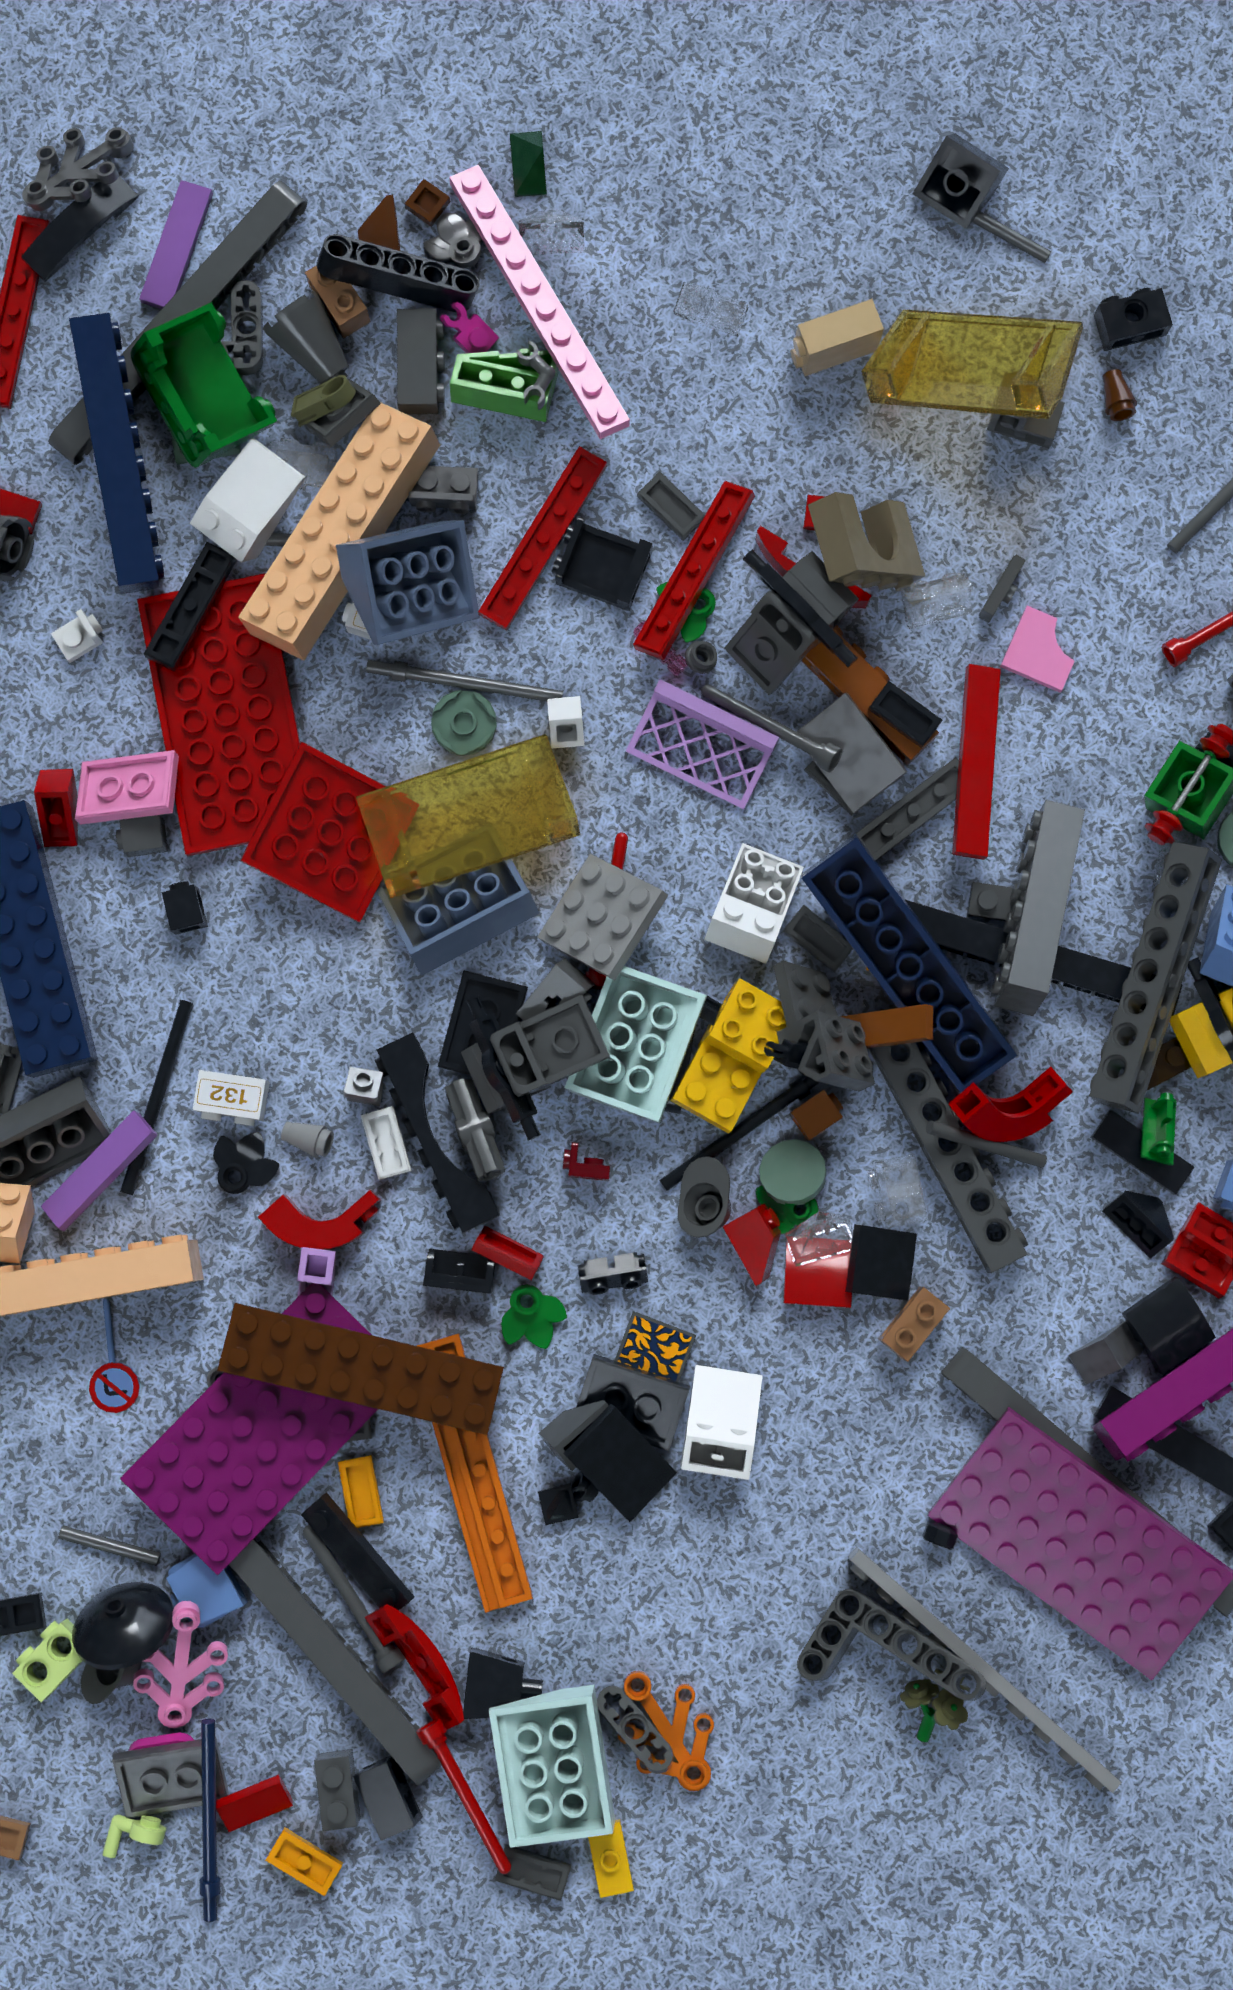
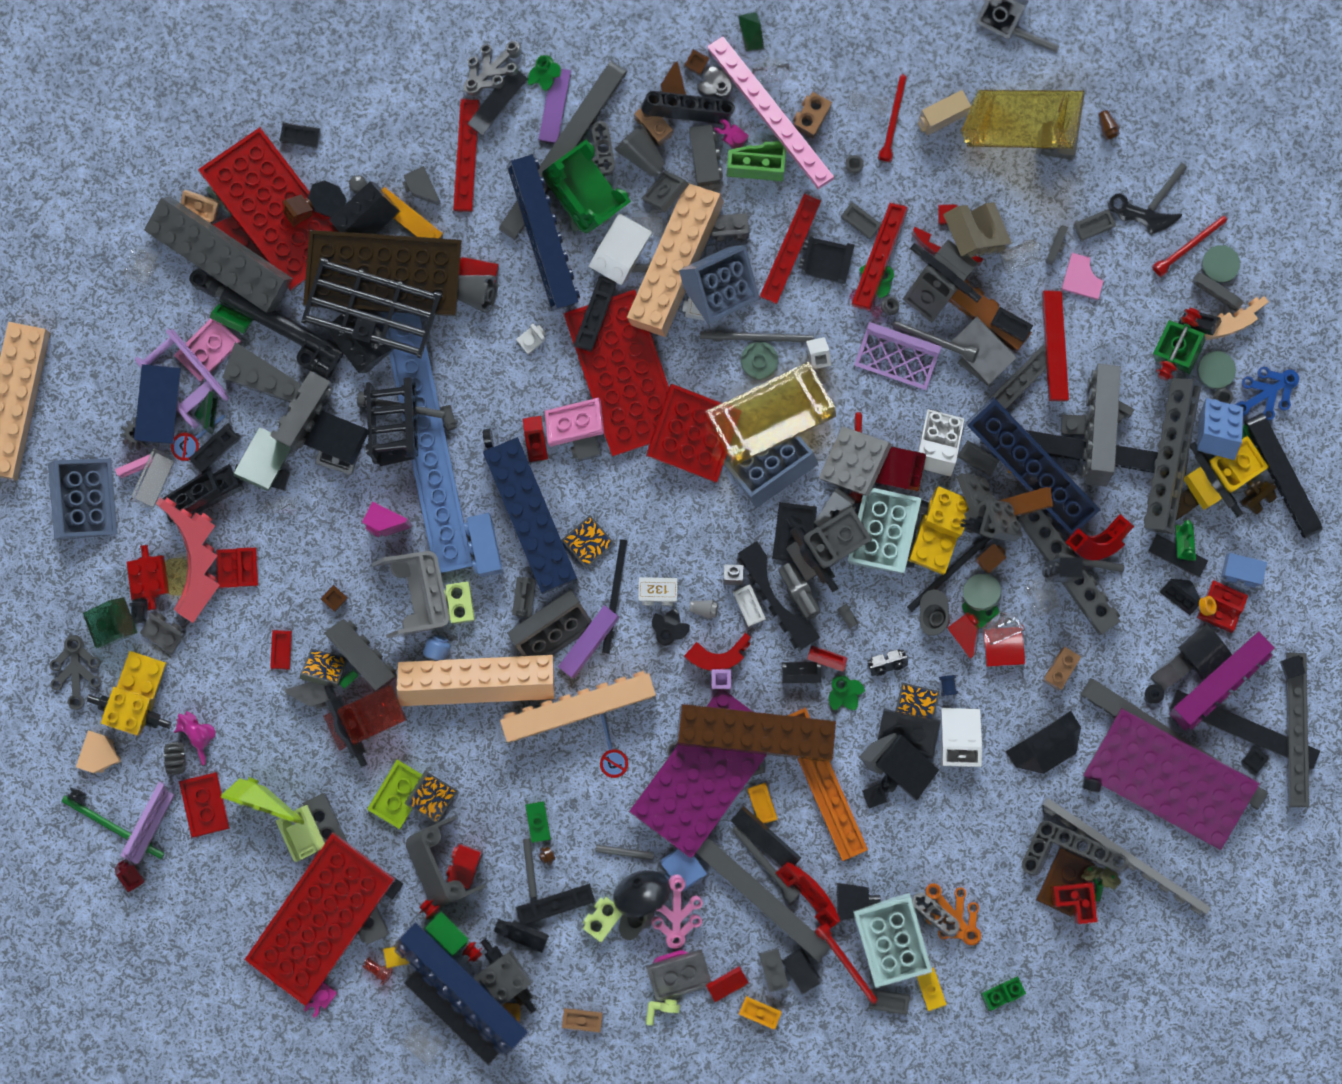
camera: 10 degrees left, 0 degrees up
(124, 997) = (588, 541): none -> tile
(165, 187) = (544, 74): none -> green plate
(184, 908) = (615, 486): black brick -> none
(210, 1882) = (708, 1032): dark blue bar -> none
(322, 399) = (653, 185): olive piece -> none
(545, 372) = (780, 153): dark grey arm -> none
(554, 1183) = (847, 615): none -> dark grey pin
(591, 1168) = (865, 606): dark red bracket -> none
(618, 318) = (815, 116): none -> medium nougat brick
(672, 408) = (854, 164): none -> dark grey tile
(680, 940) = (902, 469): none -> dark red brick
(713, 1327) = (948, 685): none -> dark blue bush
(729, 396) = (886, 153): none -> red piece
(736, 1883) = (1003, 993): none -> green slope
(868, 1701) = (1065, 870): none -> reddish brown tile
(872, 1455) = (1048, 745): none -> black wedge
(881, 1262) = (1039, 636): black tile -> none
(892, 1733) = (1081, 897): none -> red brick
(937, 1153) = (1063, 570): none -> black brick
(1060, 1392) = (1148, 694): none -> black plate
(1072, 563) = (1094, 225): none -> dark grey plate
(1080, 888) = (1124, 411): none -> dark grey tile
(1118, 331) = (1121, 74): black brick -> none
(1172, 568) = (1151, 220): none -> black piece
(1183, 1246) = (1207, 605): none -> light orange tile

